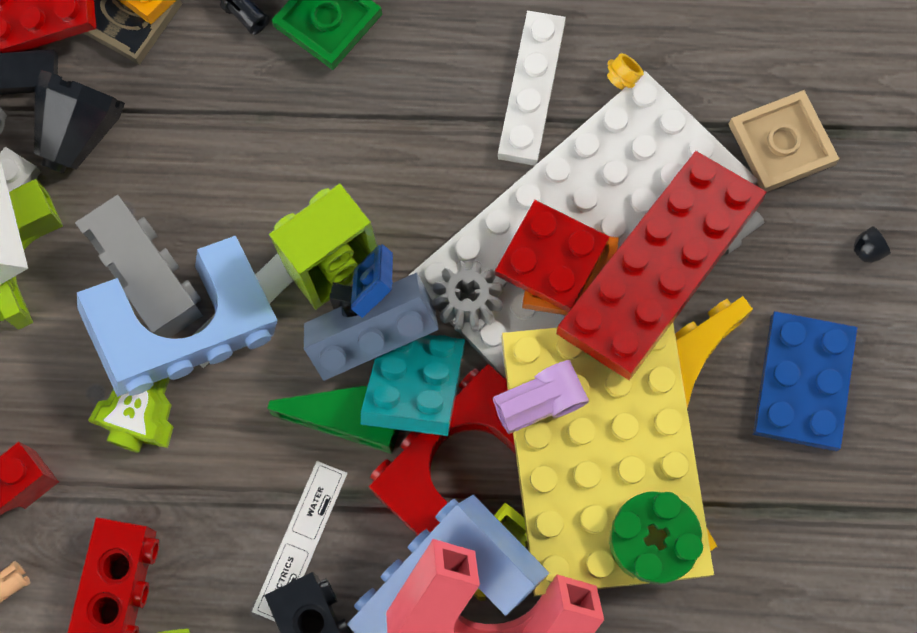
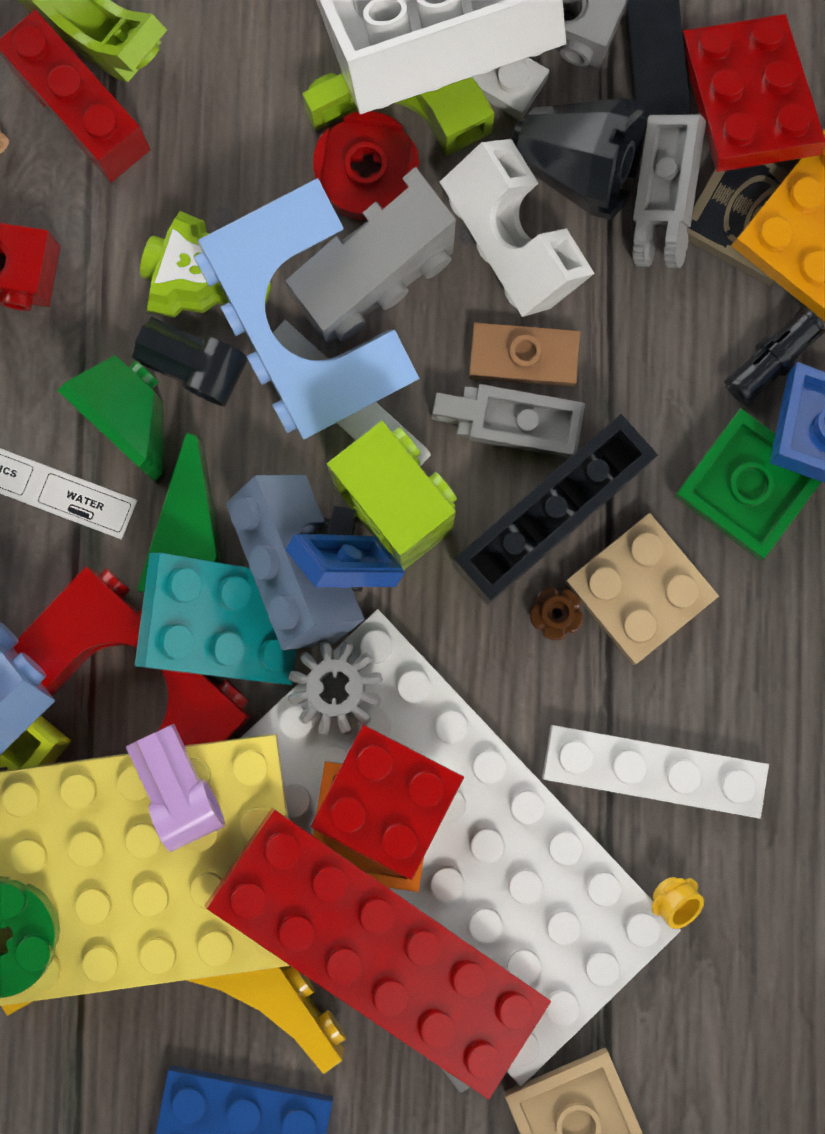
camera: 85 degrees right, 10 degrees up
(55, 261) = (347, 144): none -> red plate
(101, 63) = (667, 186): none -> light grey hinge
(158, 159) = (487, 197): none -> white arch
(214, 401) = (203, 366): none -> black piece
(221, 170) = (524, 354): none -> medium nougat plate
(251, 458) = (123, 409): none -> green slope
(269, 177) = (513, 419): none -> light grey hinge
(340, 144) = (554, 509): none -> black brick
(399, 93) = (641, 589): none -> tan plate
(418, 159) = (542, 617): none -> reddish brown plate

